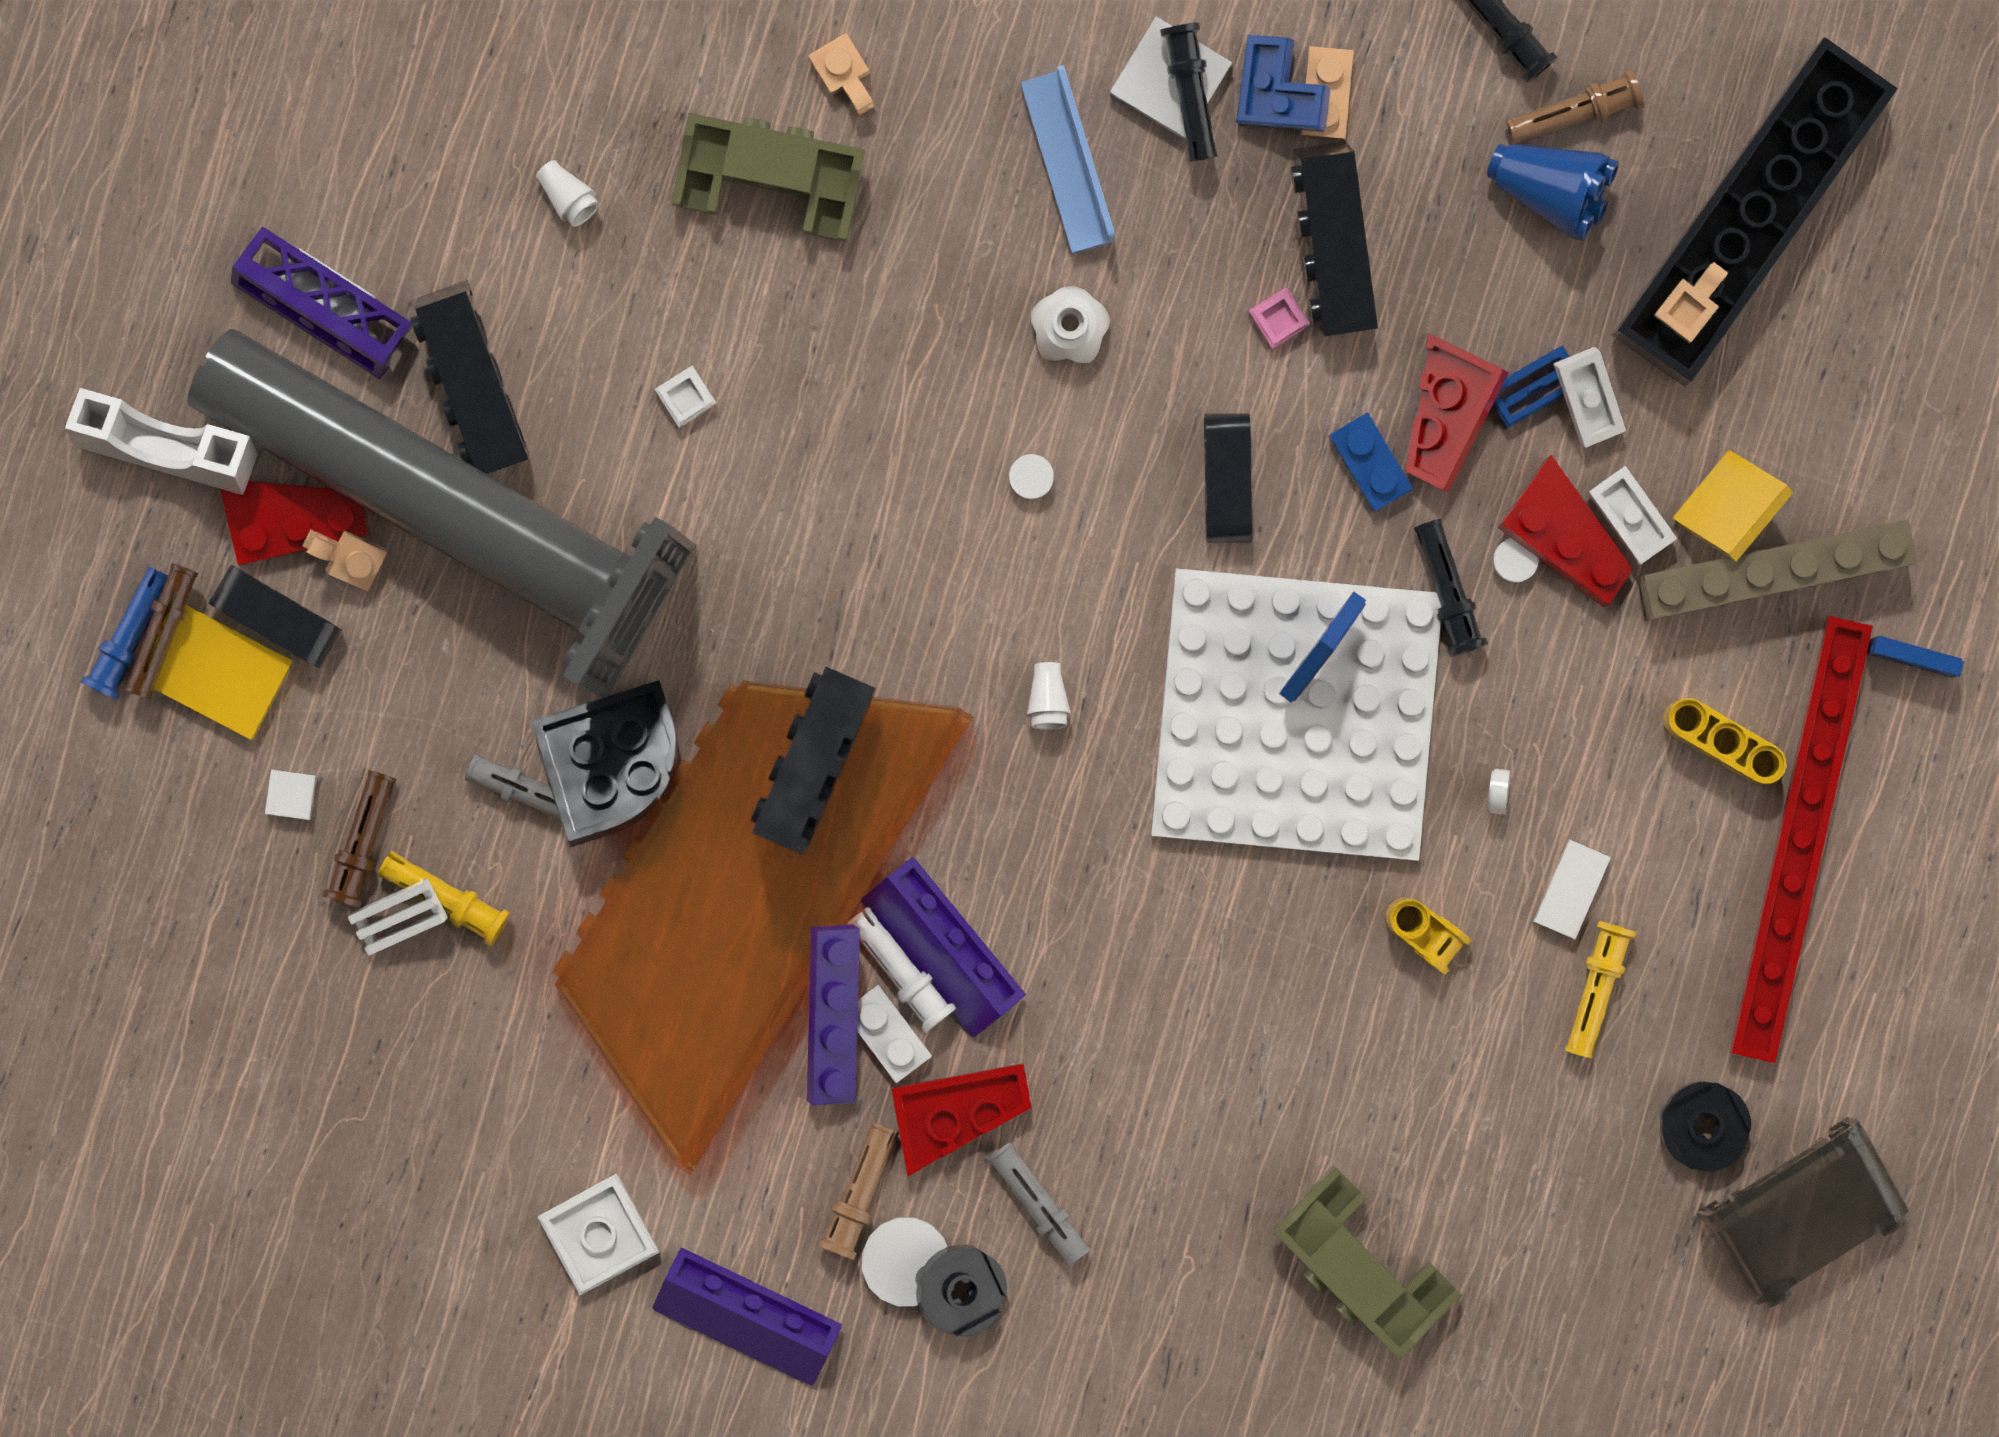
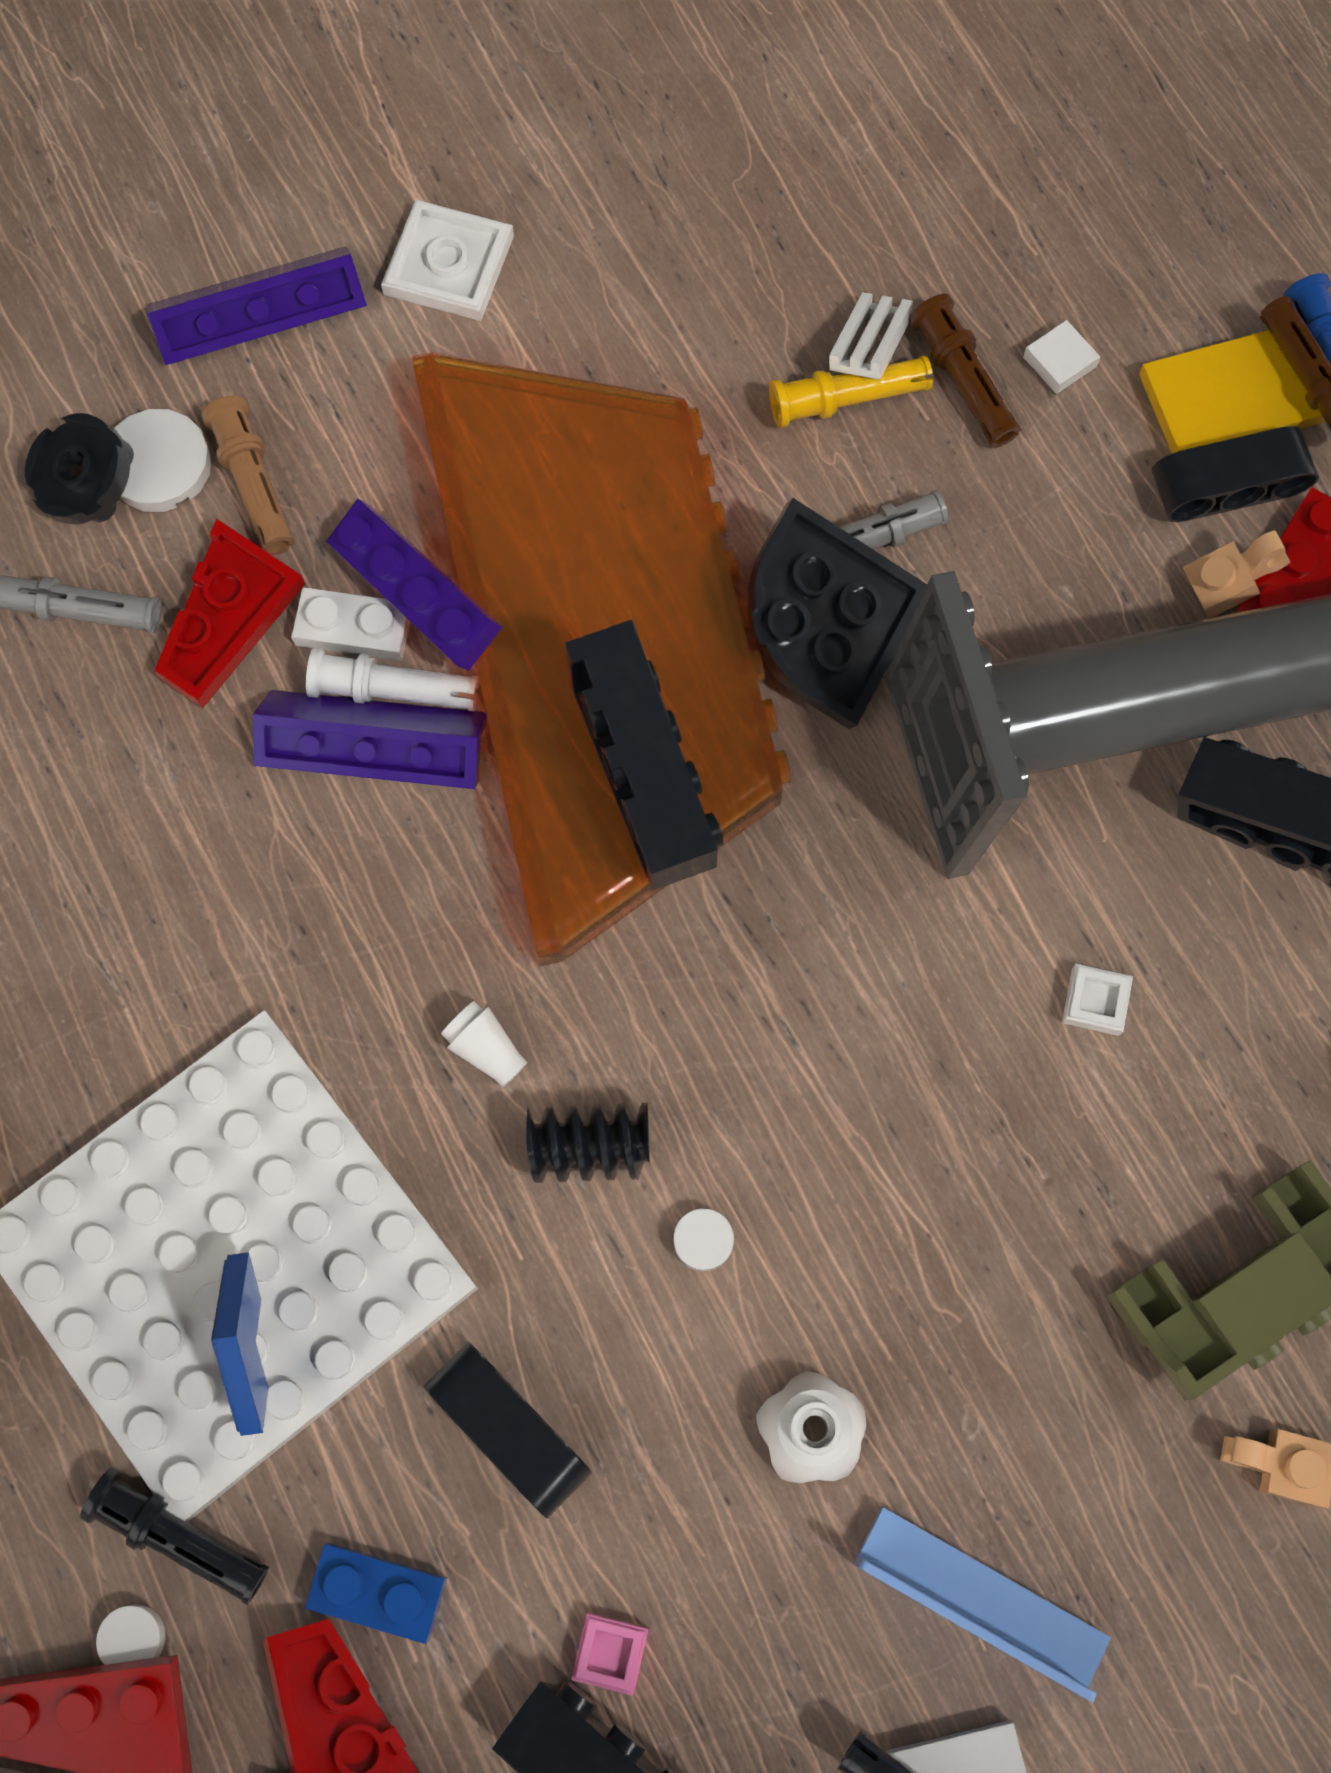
camera: 135 degrees right, 15 degrees down
(1043, 585) = (588, 1143): none -> black piece

